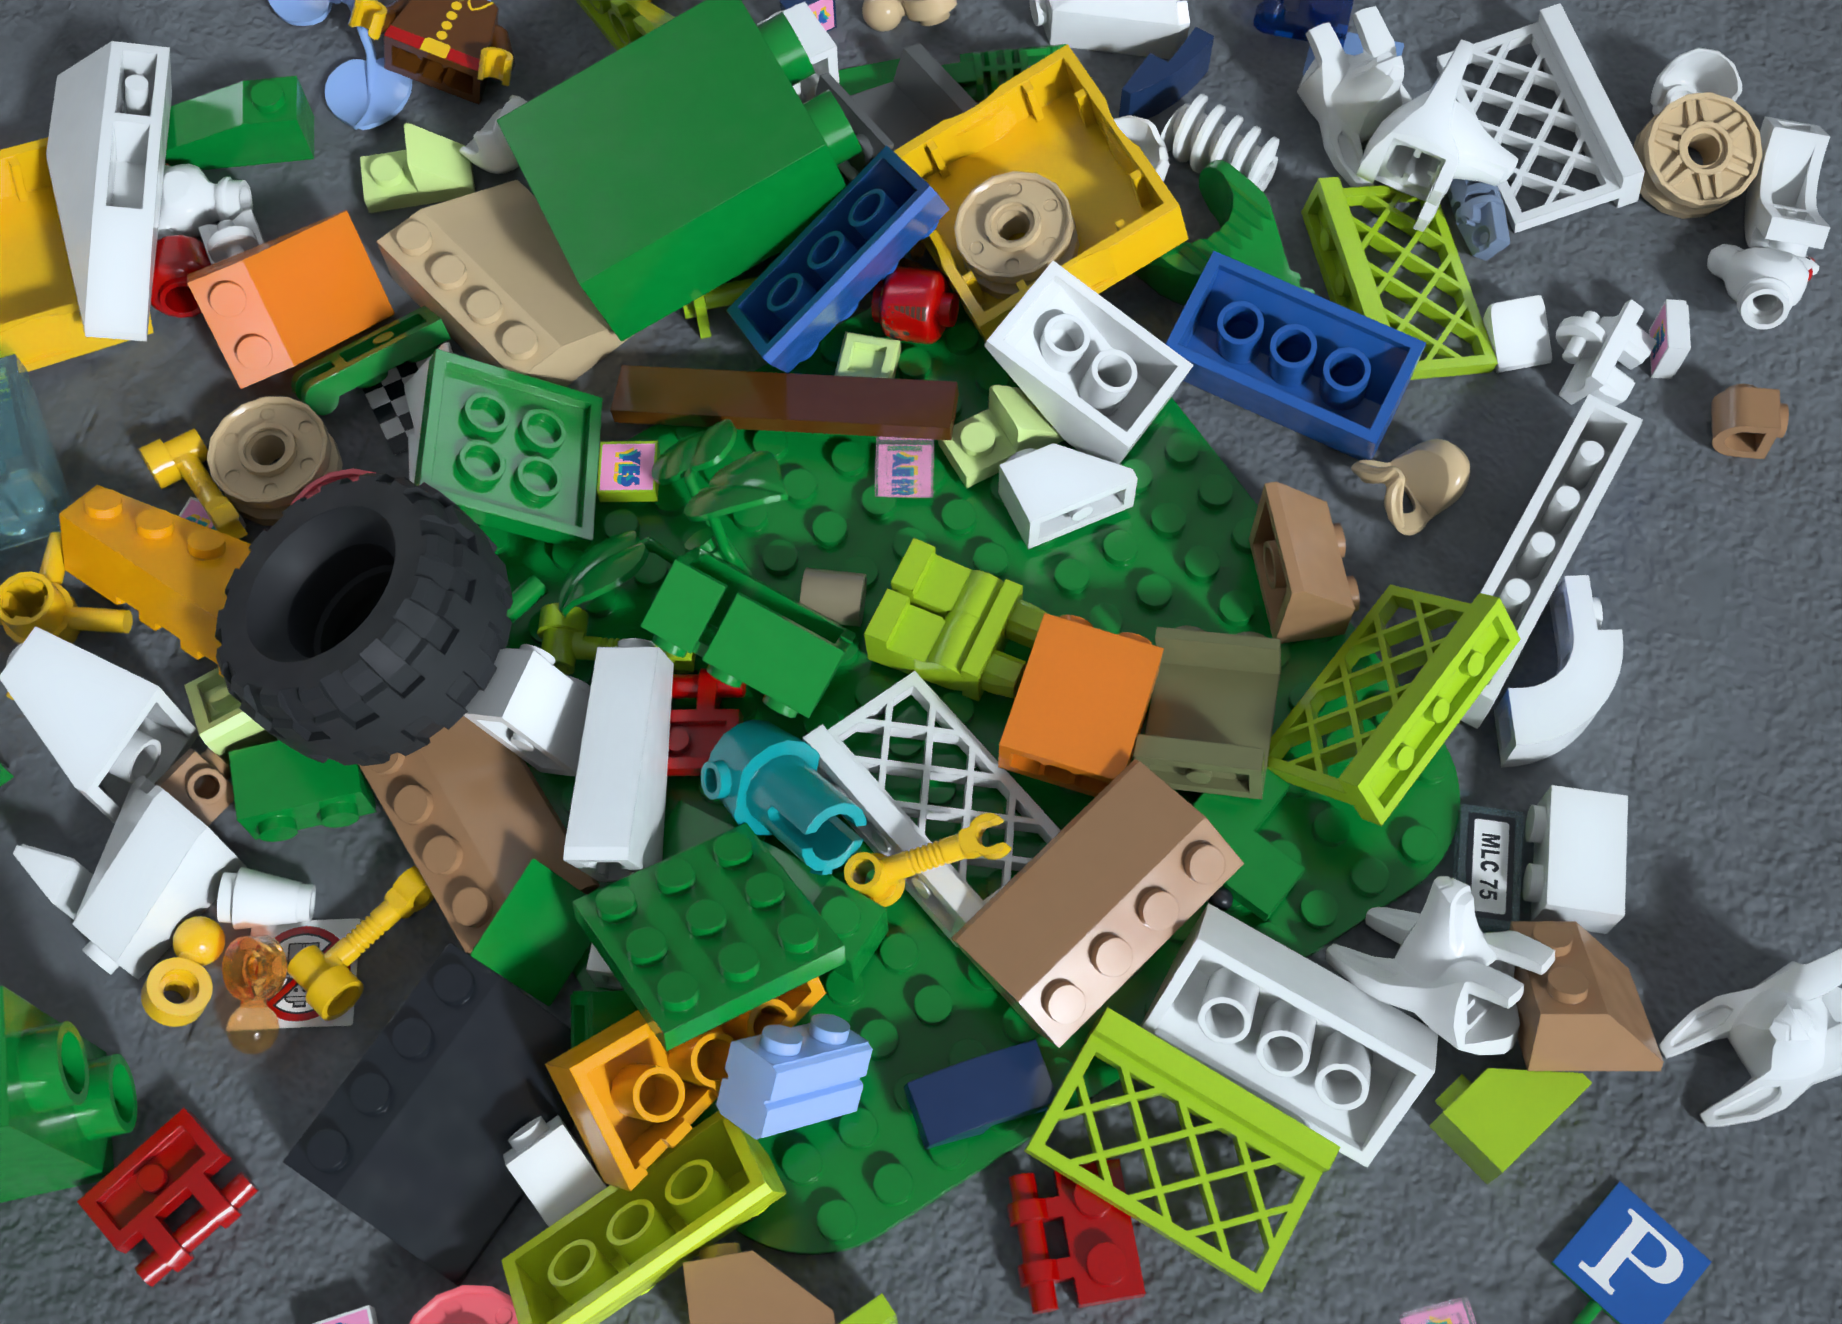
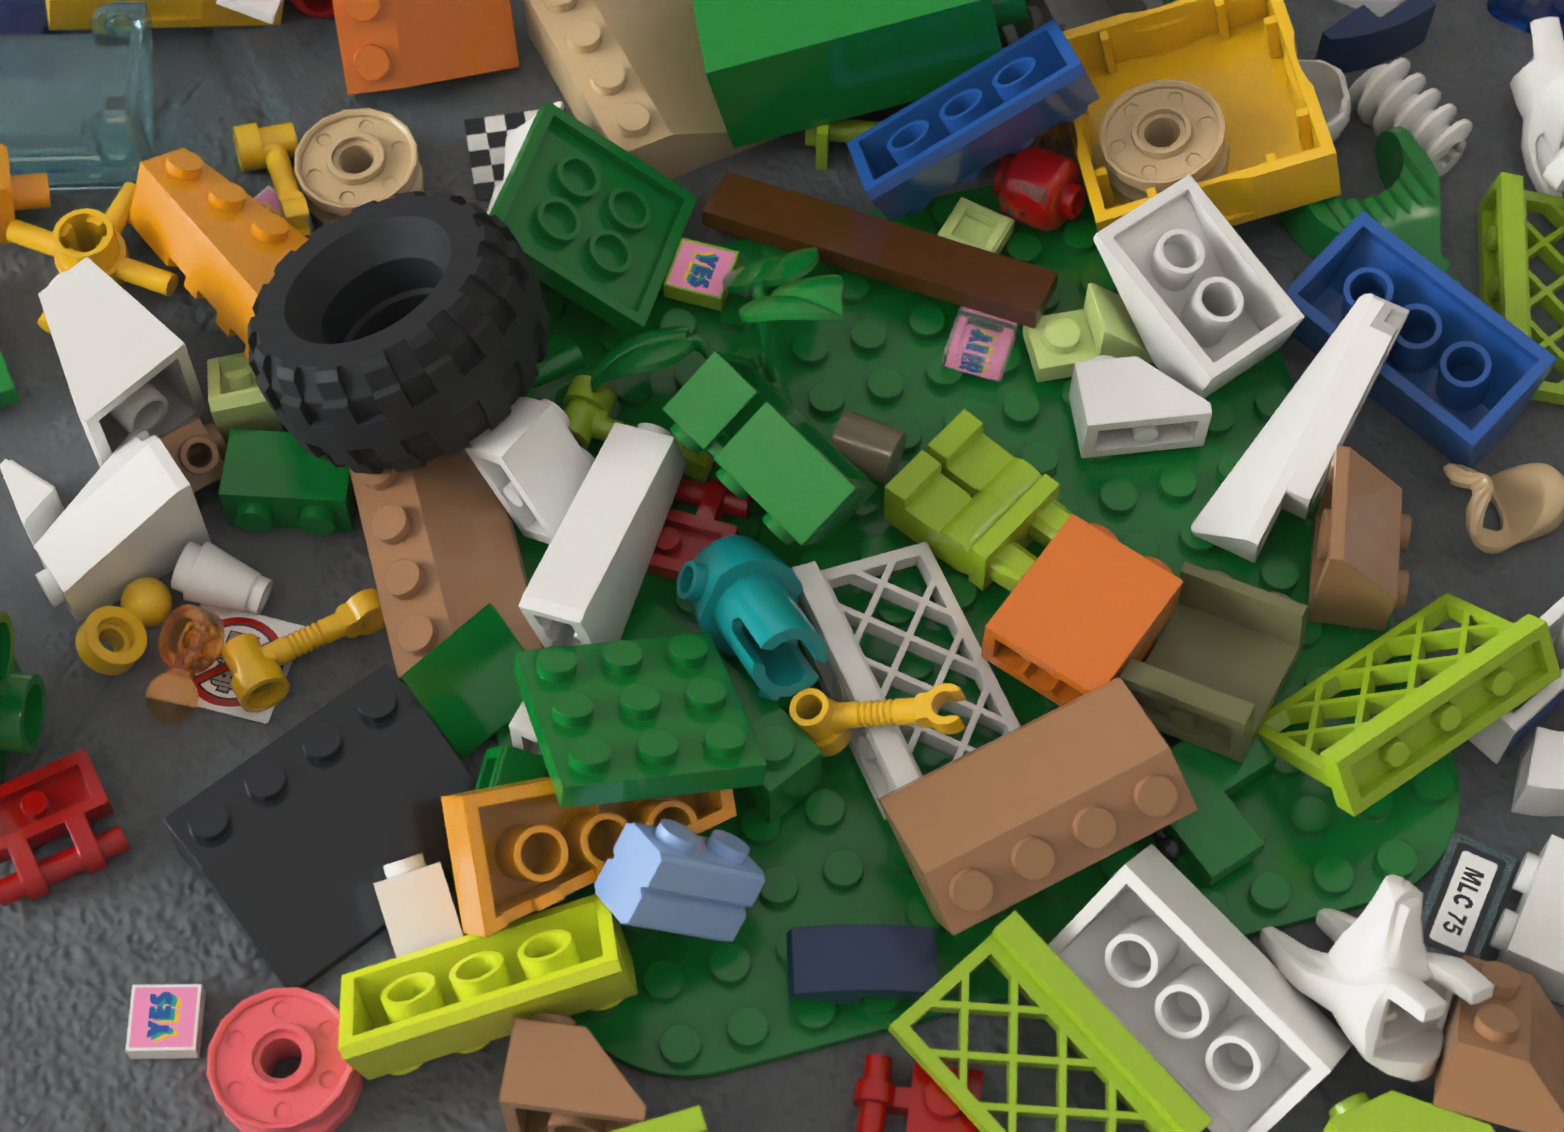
camera: 15 degrees right, 5 degrees down
(368, 359) = (479, 101): green plate -> none
(1224, 472) = (1298, 442): none -> white wedge

